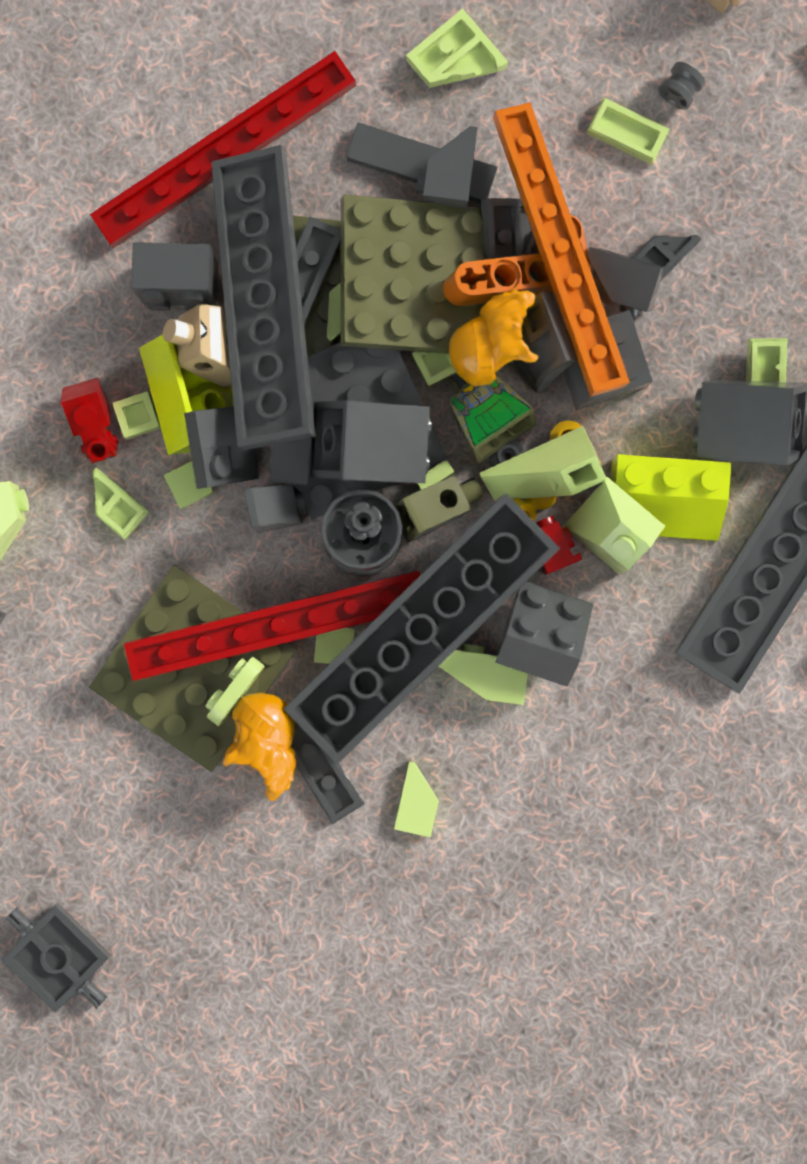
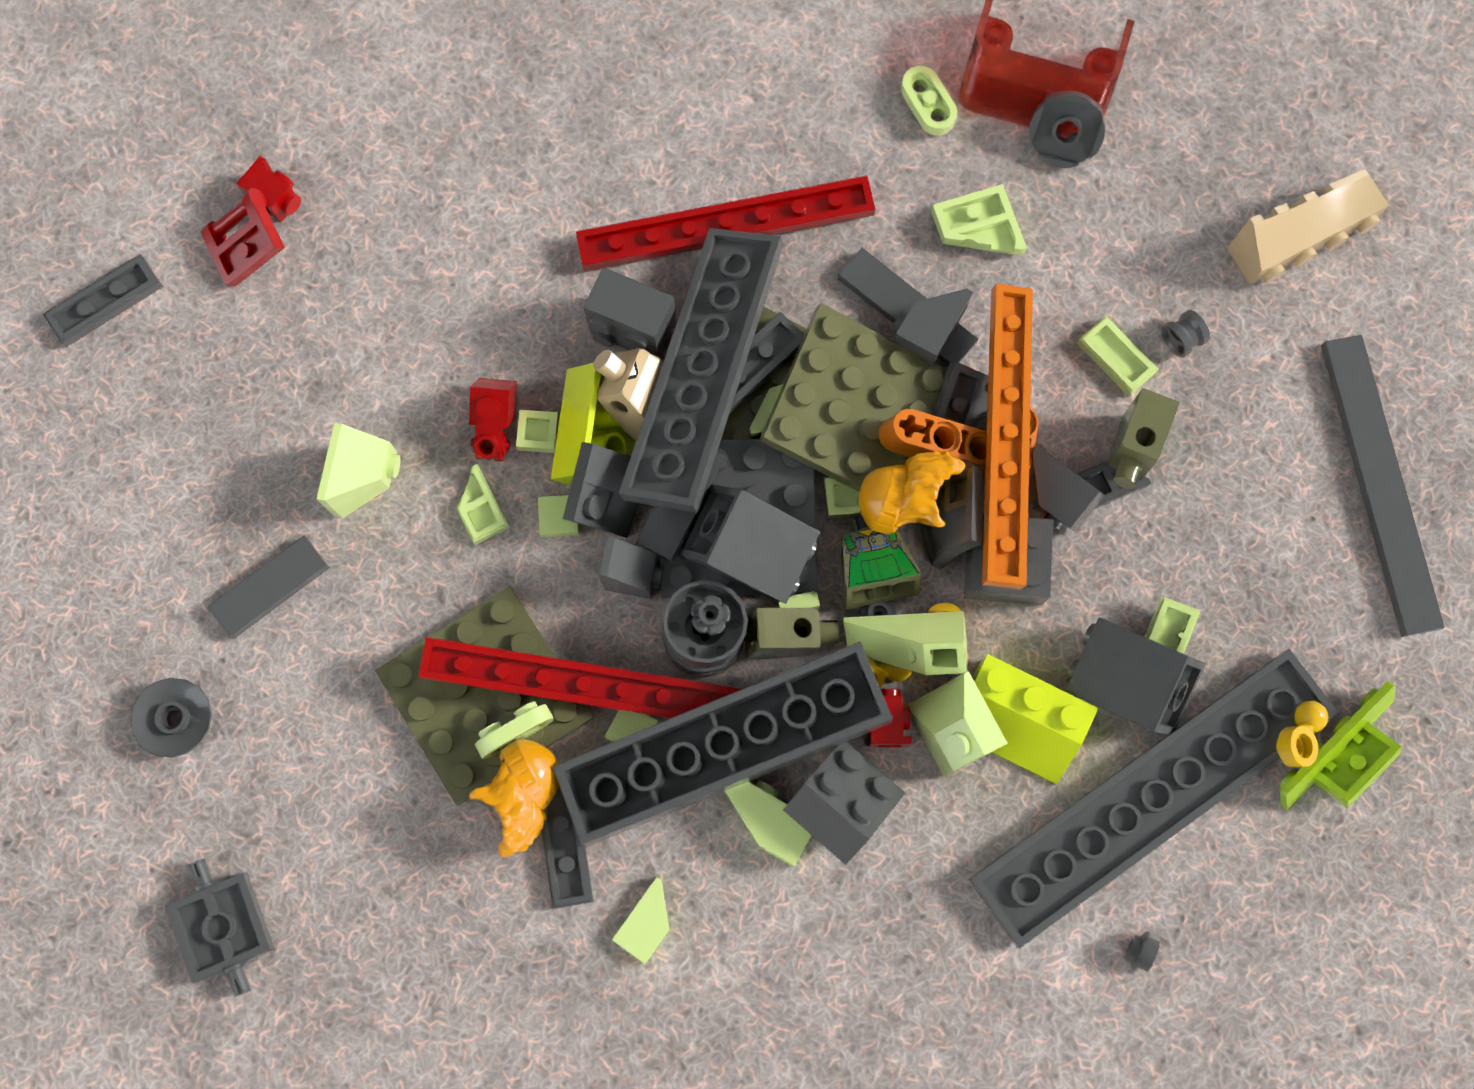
camera: 25 degrees right, 10 degrees down
(678, 201) = (1141, 437): none -> olive torso

